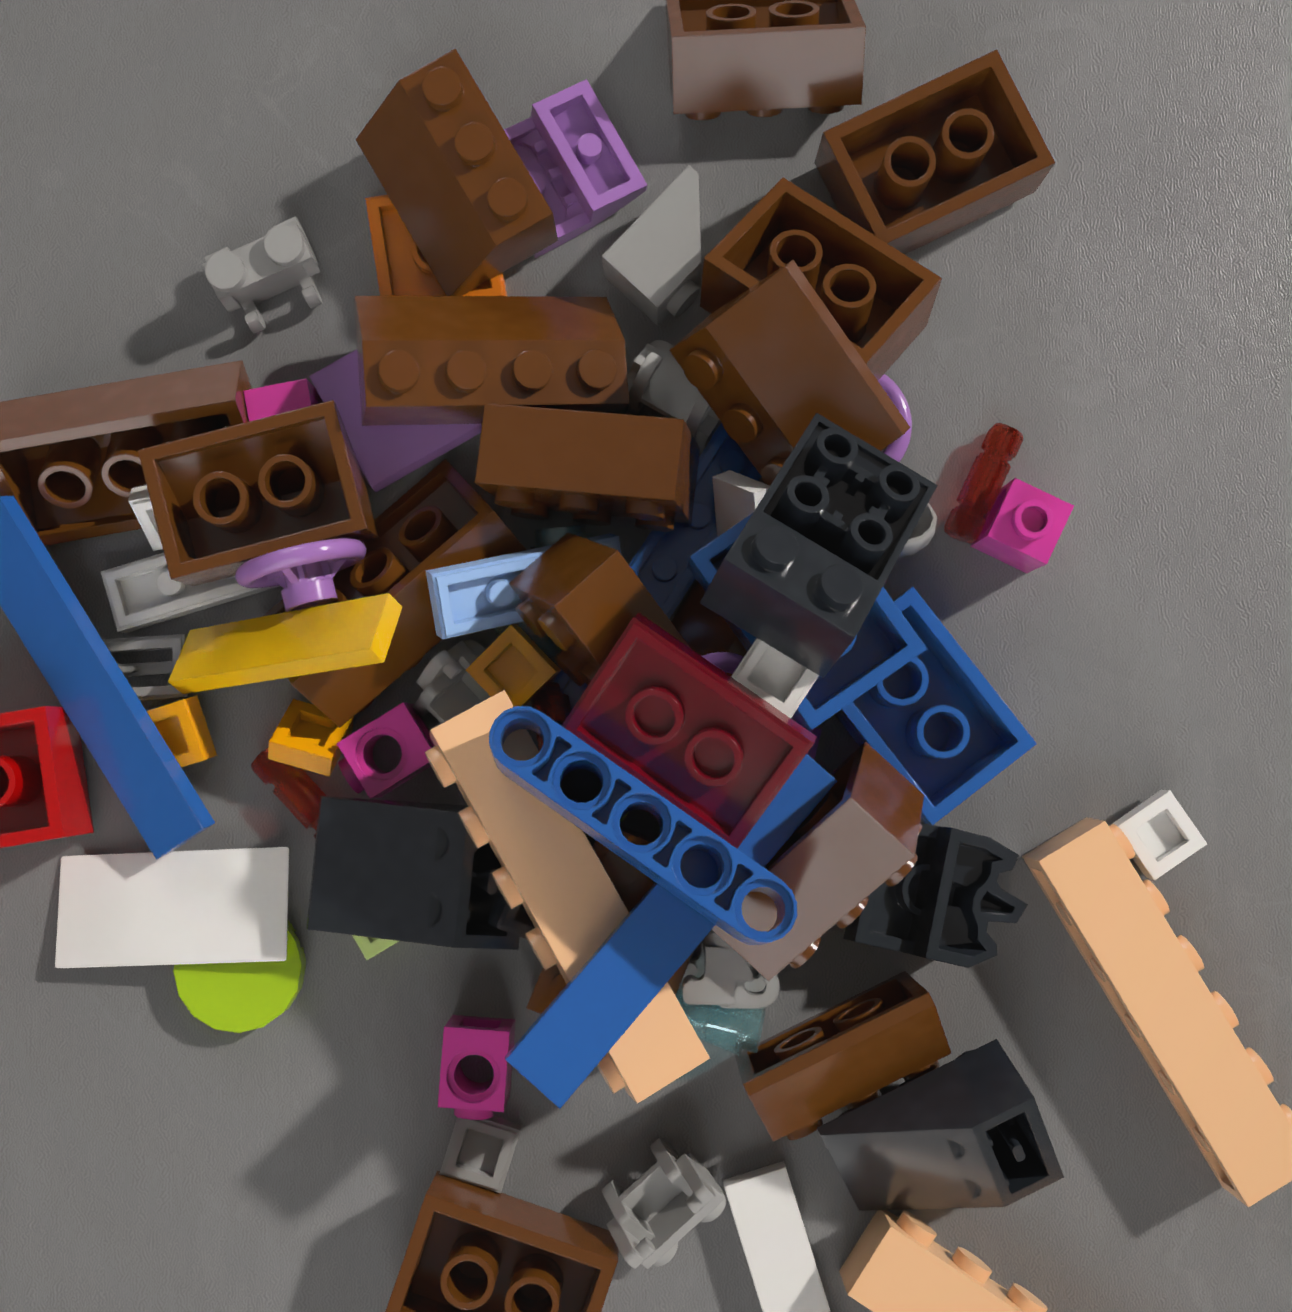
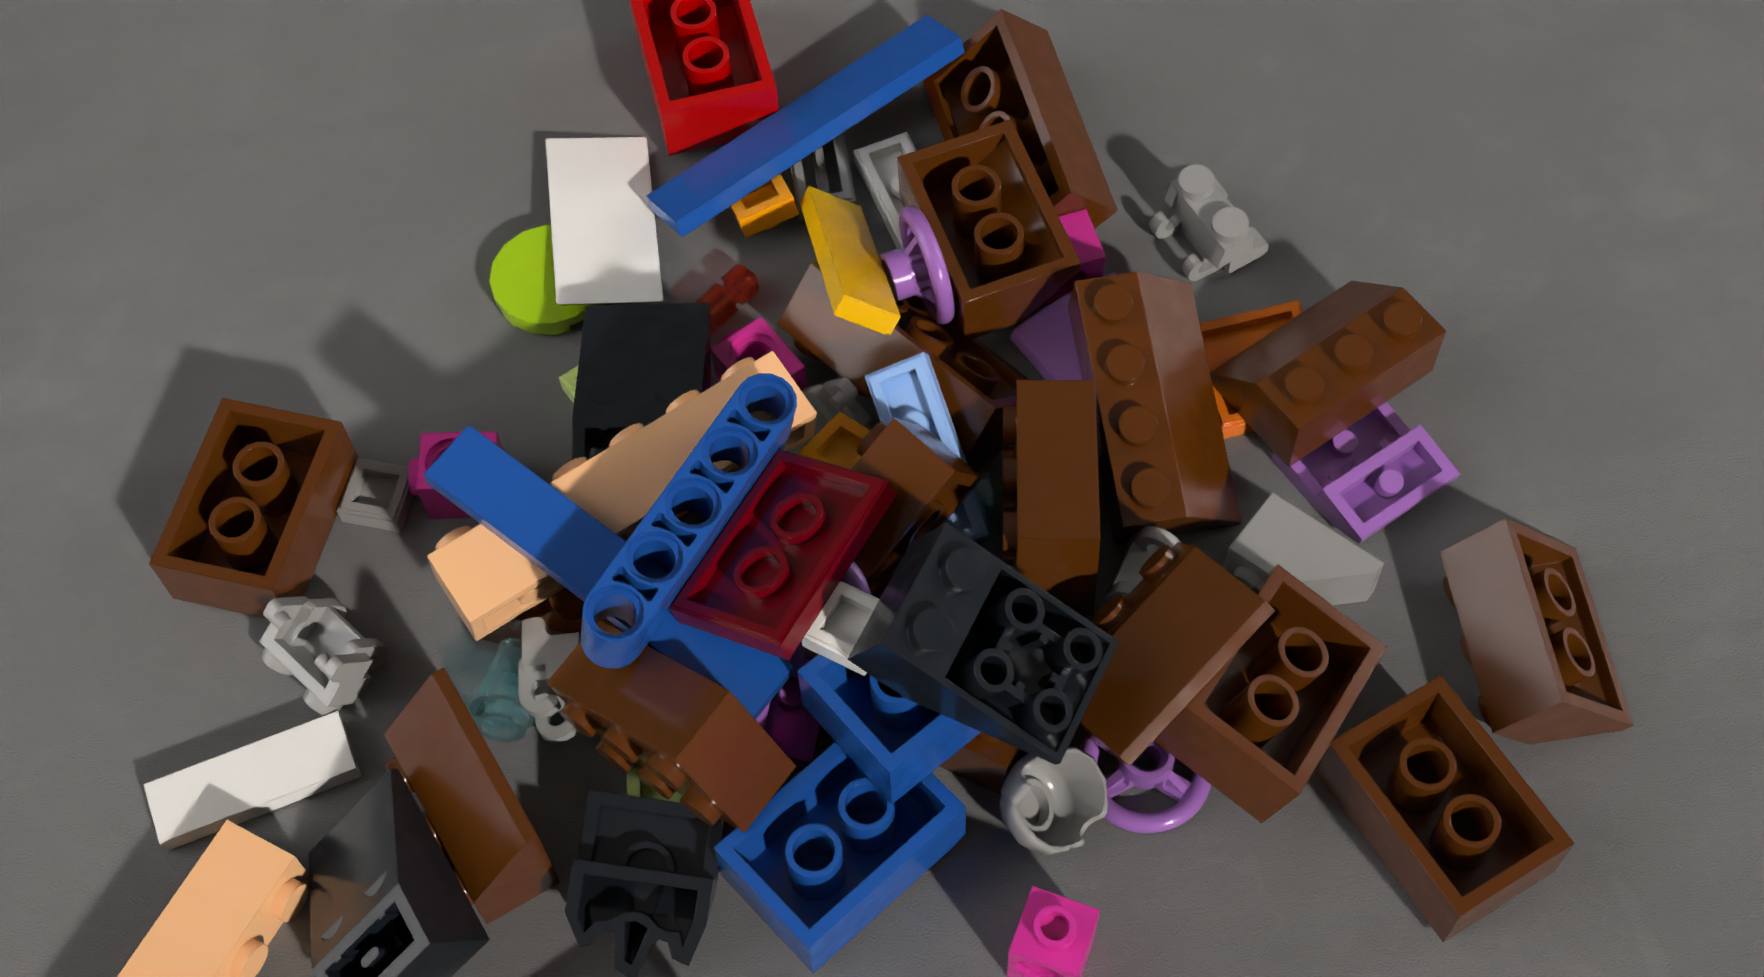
camera: 85 degrees right, 25 degrees down
(308, 739) = (762, 296): light orange plate -> none
(983, 483) = (1116, 917): clear red axle -> none

